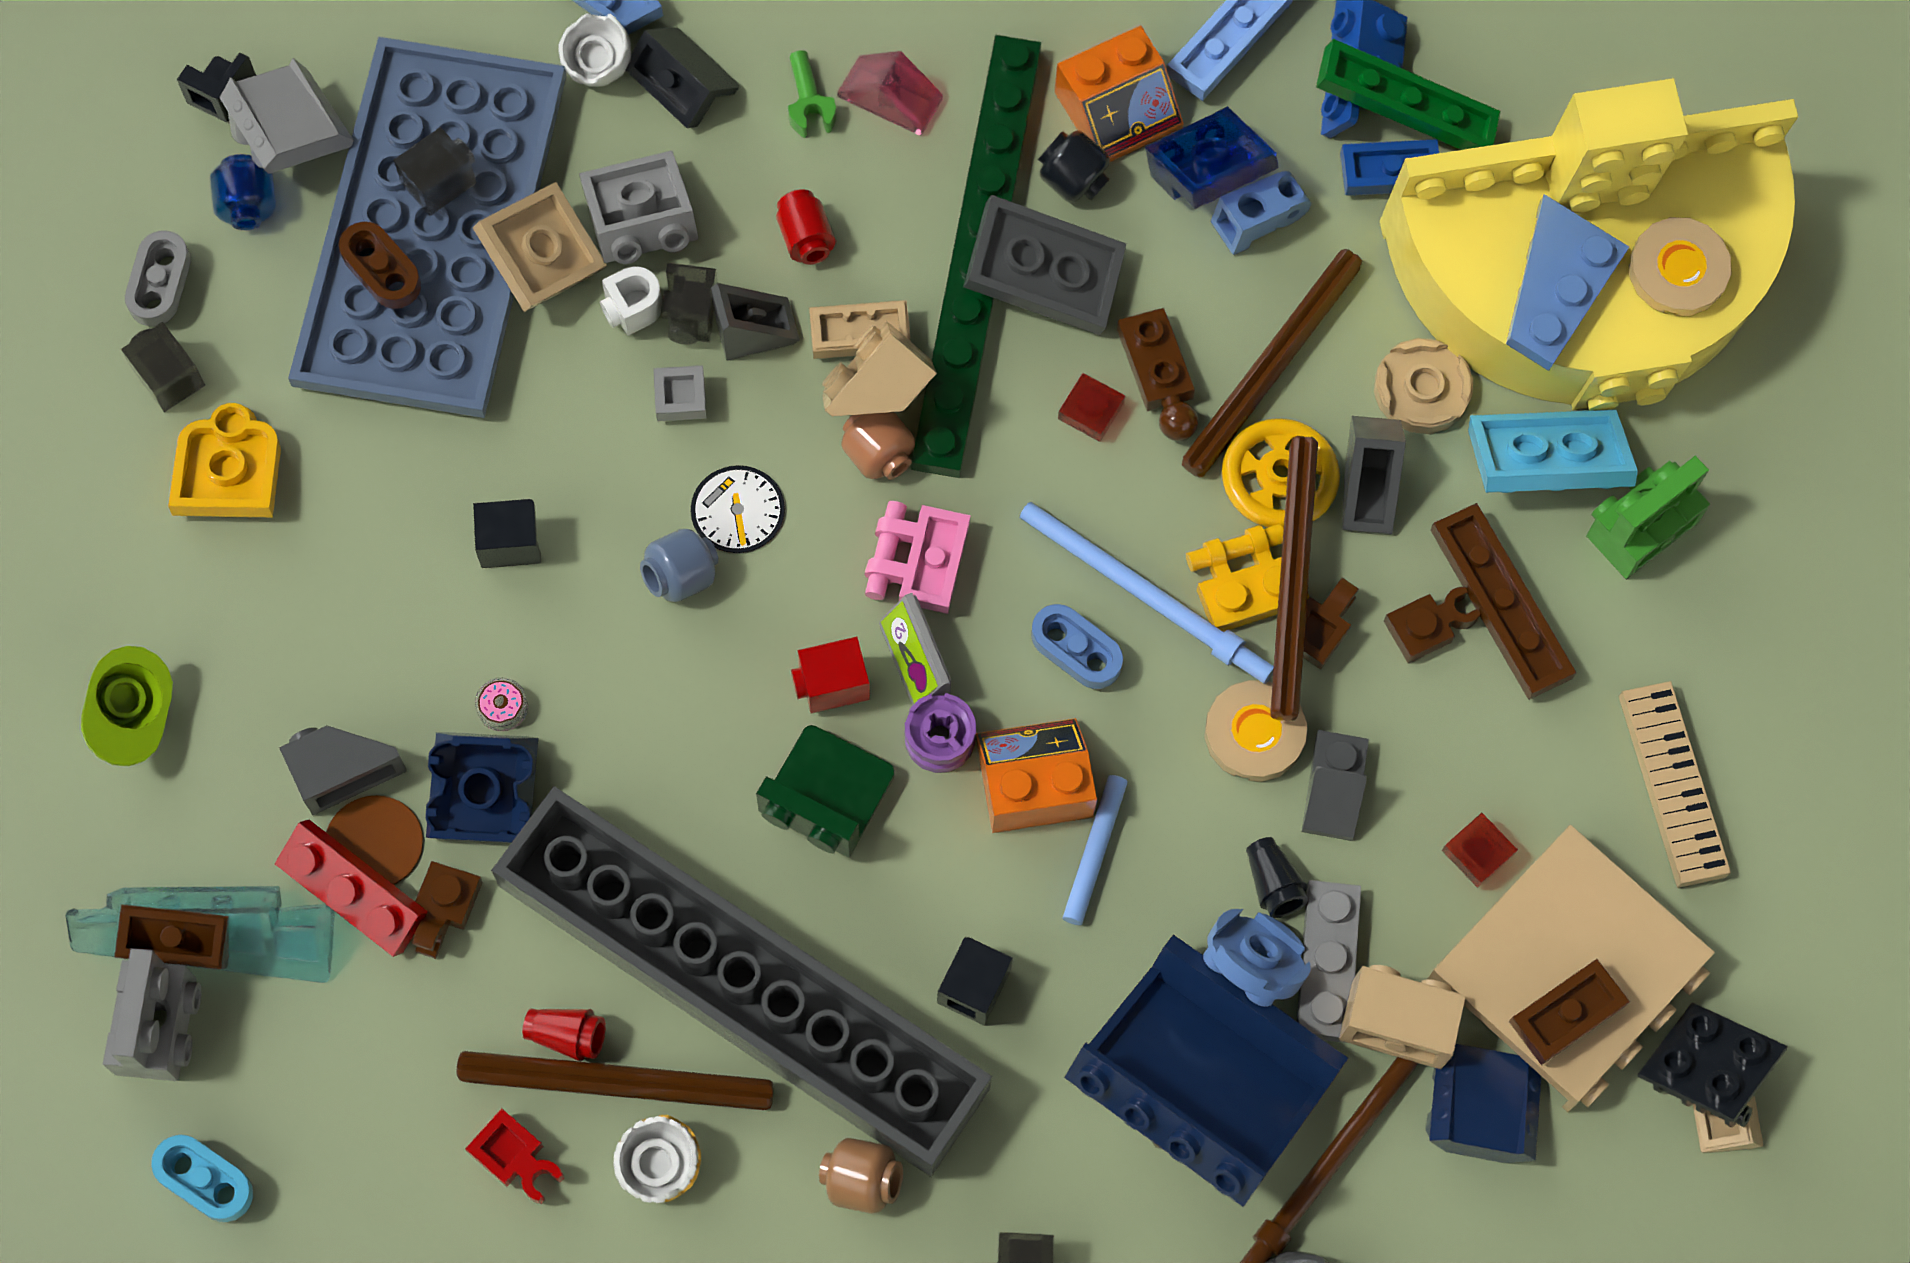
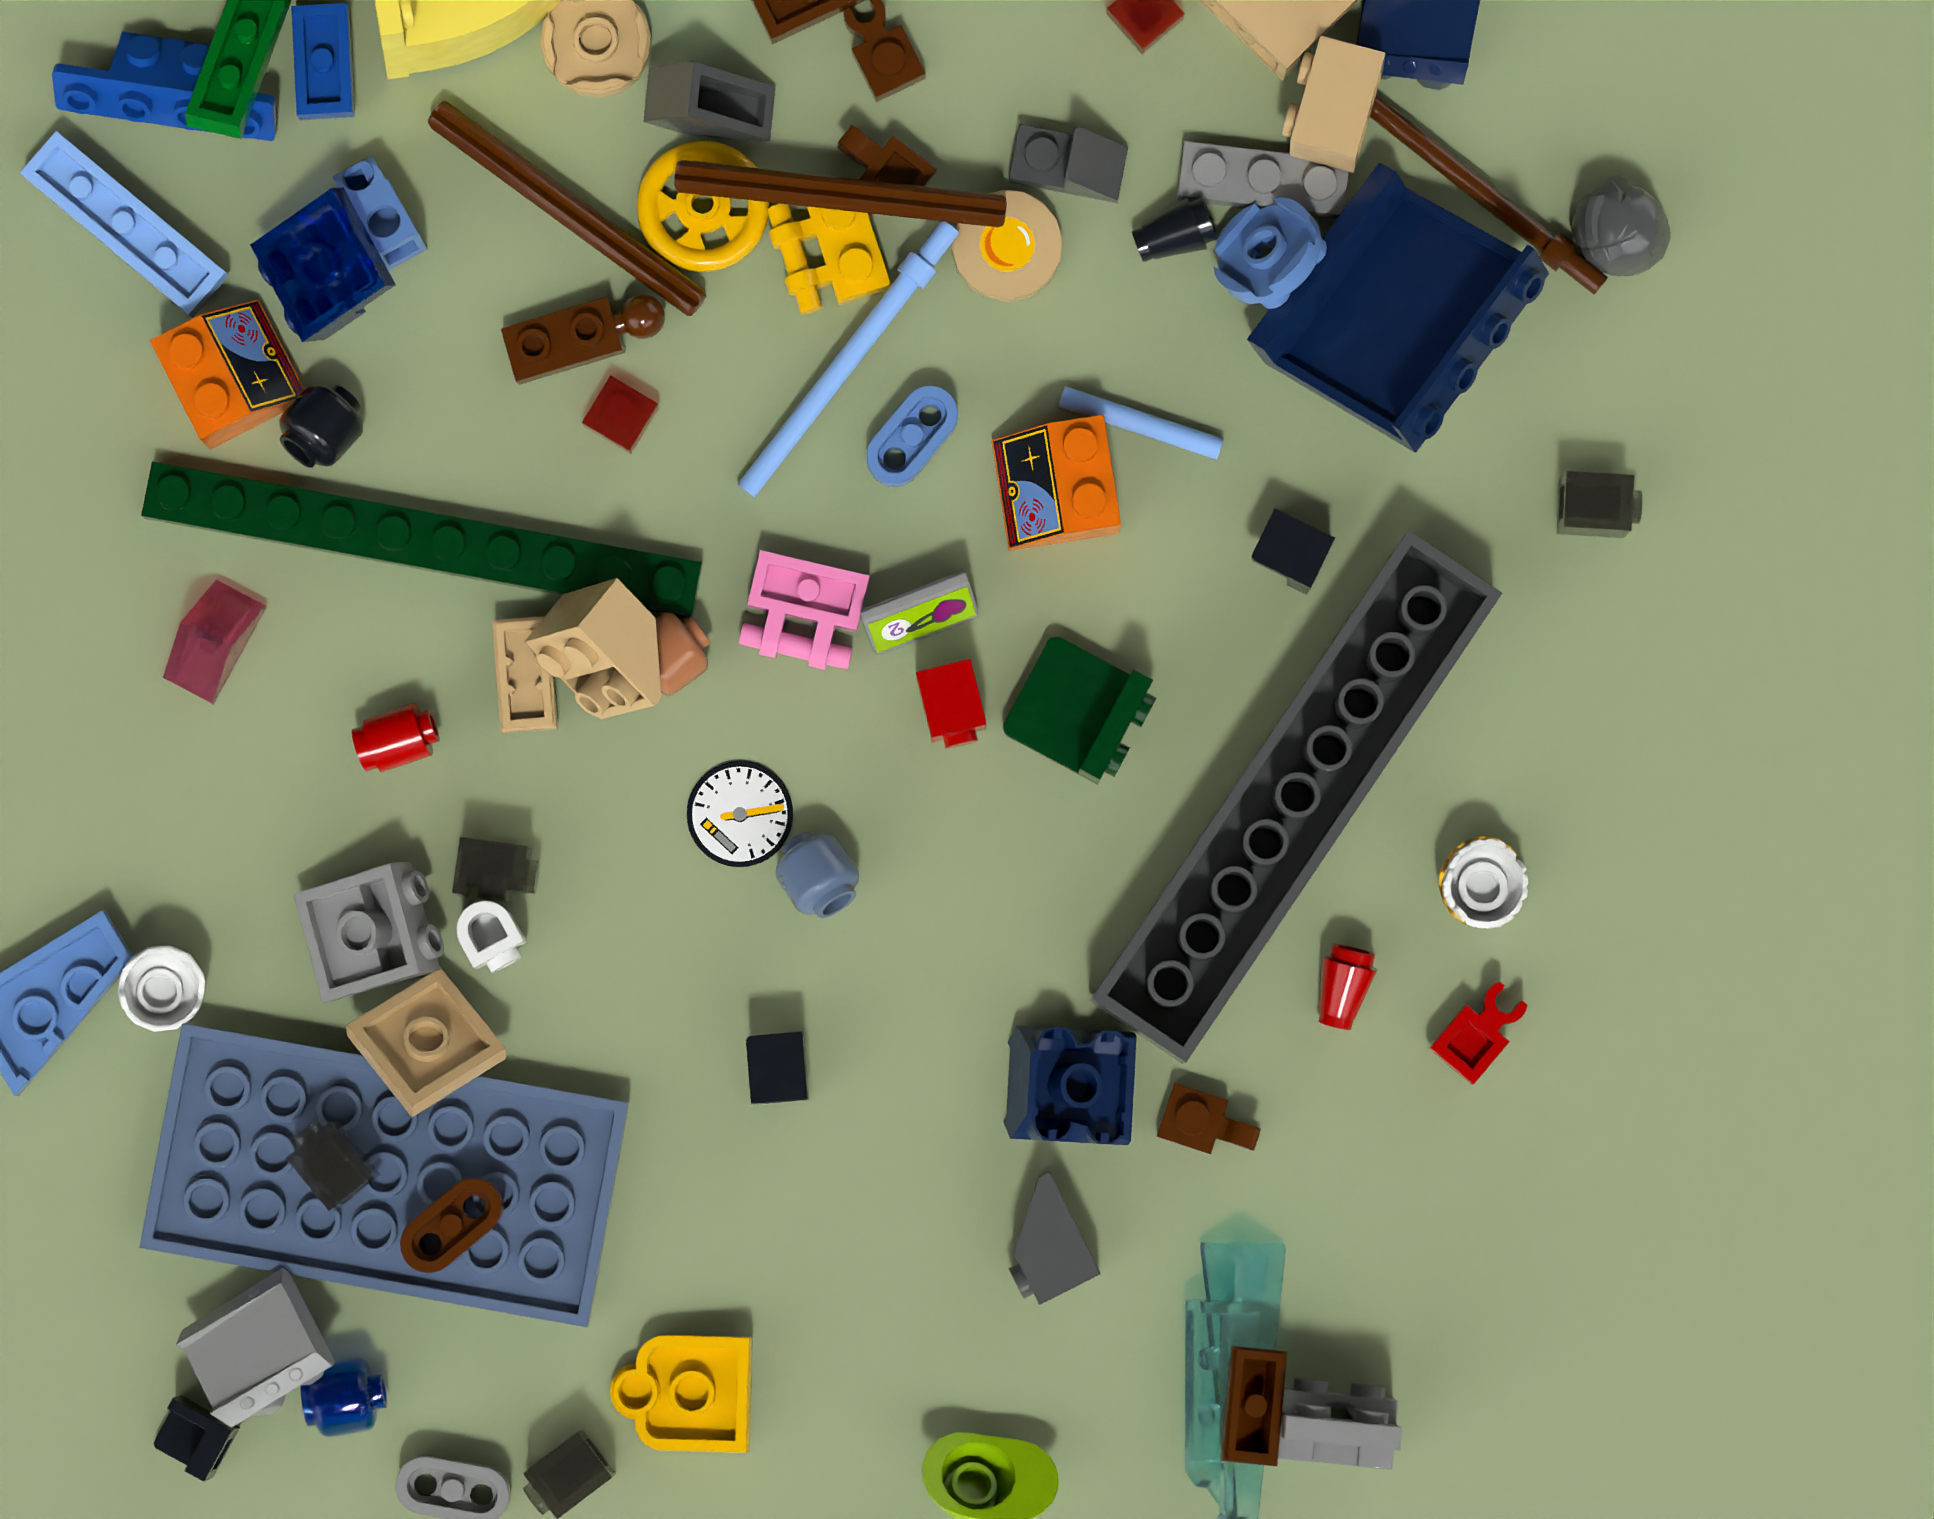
camera: 90 degrees left, 15 degrees up
(203, 1180) = (1506, 1363): medium azure plate -> none
(350, 887) = (1187, 1222): plate -> none
(380, 834) = (1129, 1204): dark orange sticker -> none
(501, 704) = (975, 1069): tile -> none
(615, 1080) = (1395, 932): reddish brown axle -> none
(679, 74) = (189, 887): black panel -> none
(679, 393) = (604, 879): light grey plate -> none
(752, 321) = (515, 795): dark grey slope -> none
(808, 100) = (217, 737): bright green bar -> none
(861, 1175) = (1498, 671): medium nougat head -> none
(937, 753) = (1008, 609): medium lavender wheel -> none
(1045, 265) = (452, 460): dark grey plate -> none

